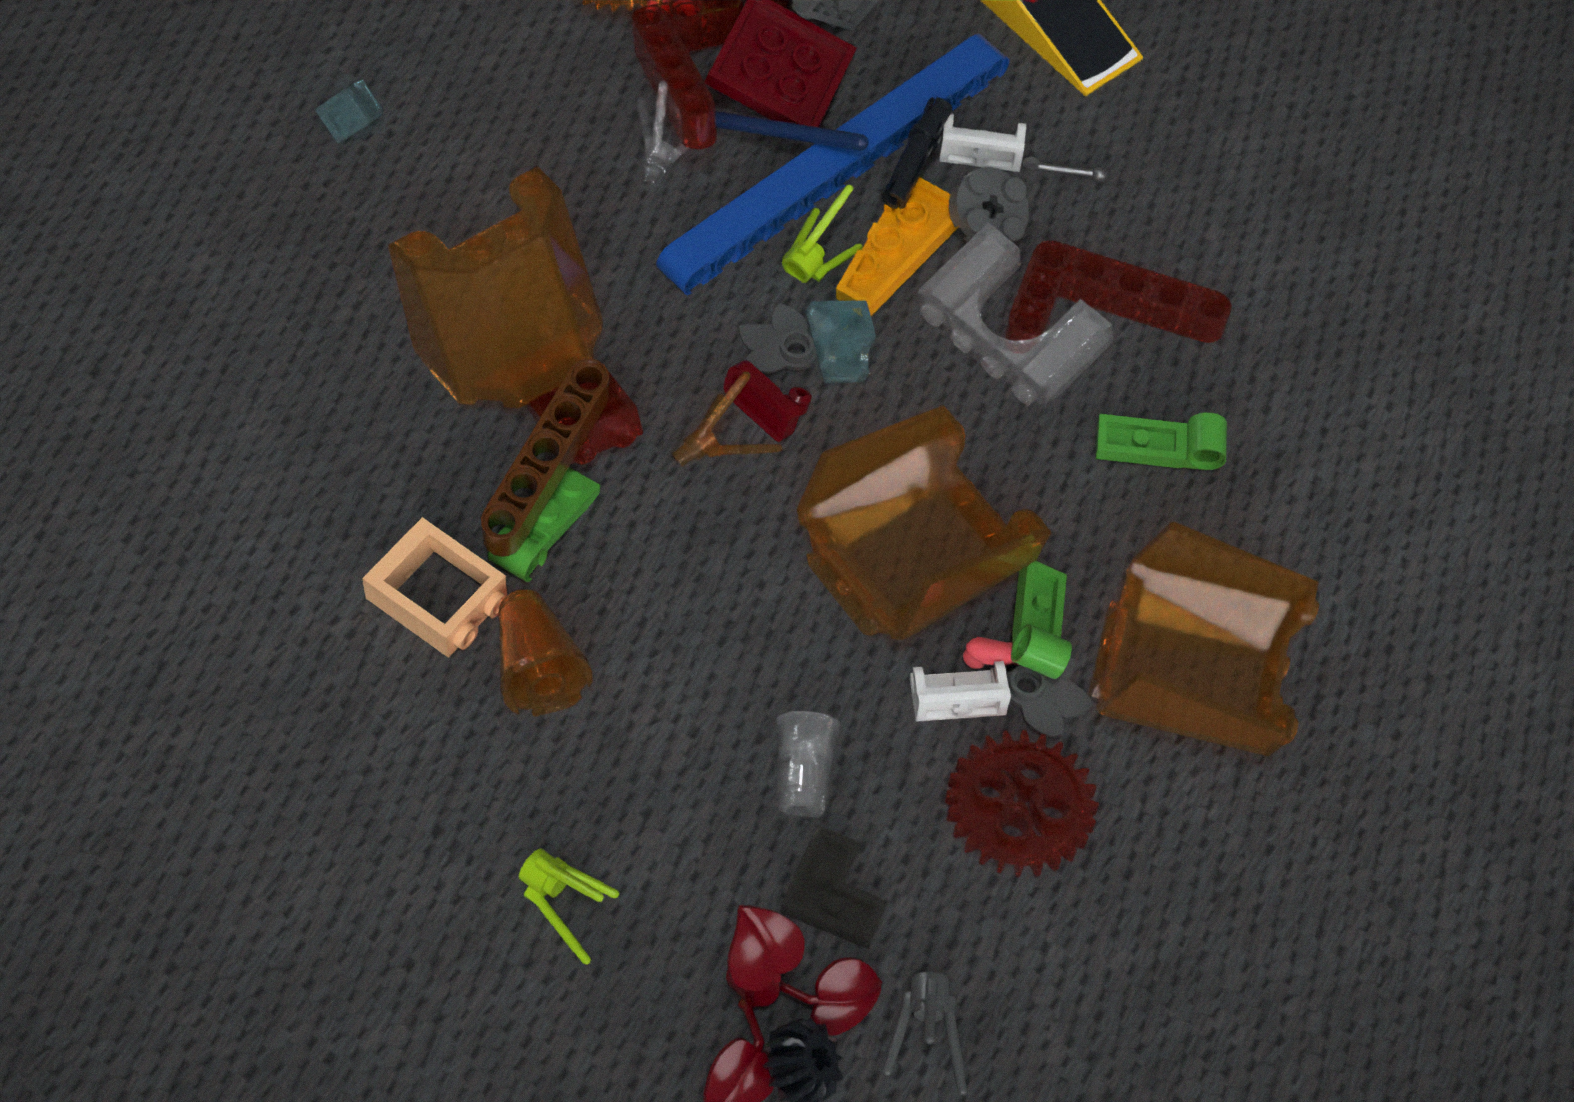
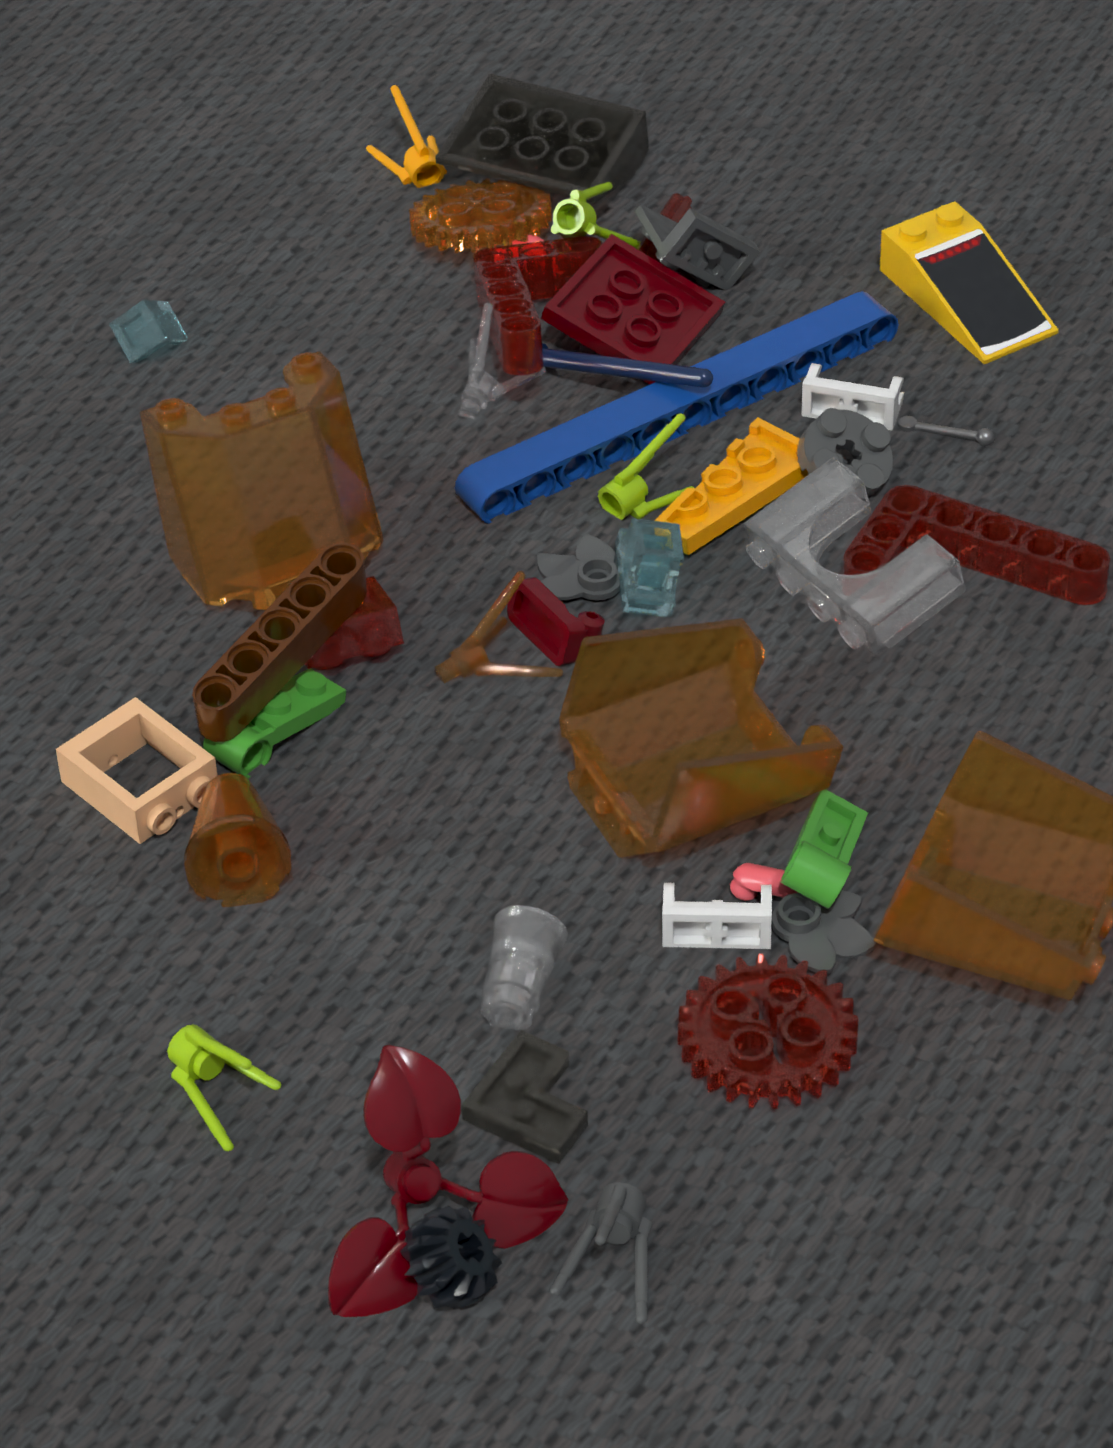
camera: 15 degrees right, 15 degrees down
(923, 139) = (779, 383): black pin -> none
(1163, 443) = (1009, 694): bright green plate -> none

